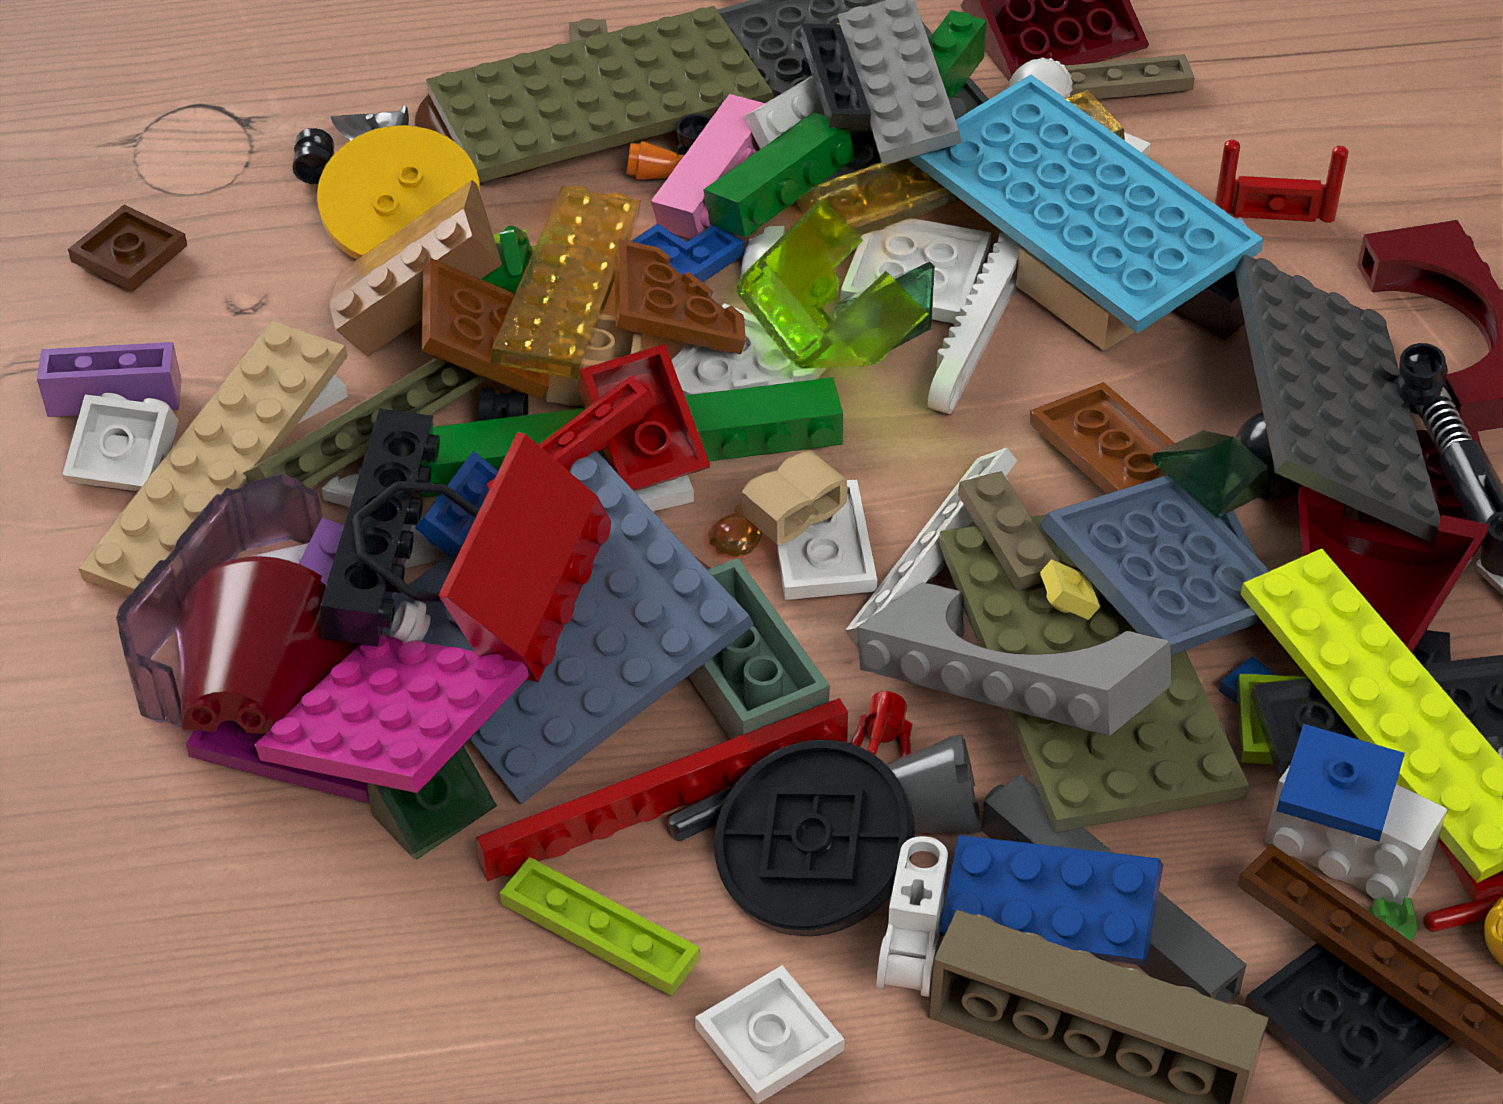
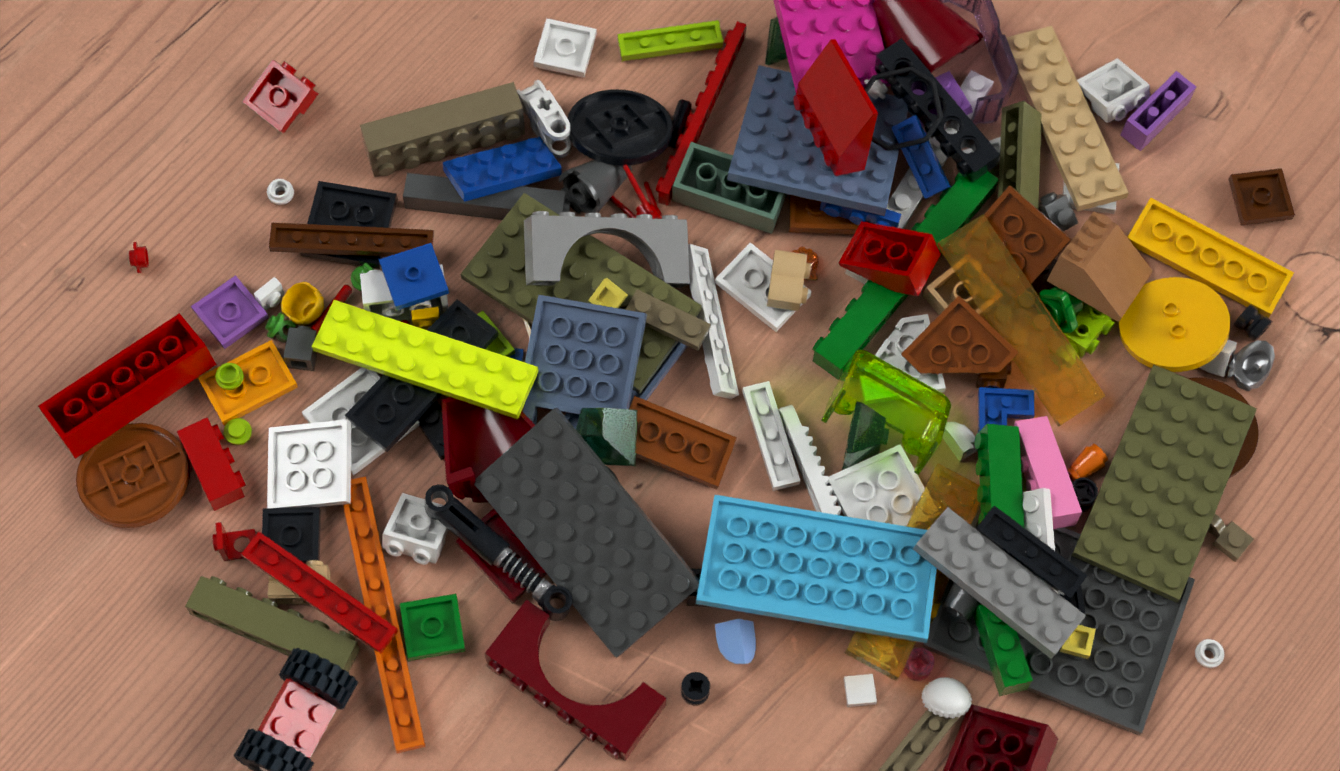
camera: 135 degrees right, 20 degrees up
(268, 238) = (1209, 257): none -> yellow plate
(365, 377) = (1058, 210): none -> dark grey bracket
(598, 423) = (897, 204): red plate -> none
(982, 395) = (771, 436): none -> white plate
(1279, 197) = (752, 703): red plate -> none
(1313, 244) = (695, 694): none -> black wheel
(1421, 374) = (547, 568): black wheel -> none

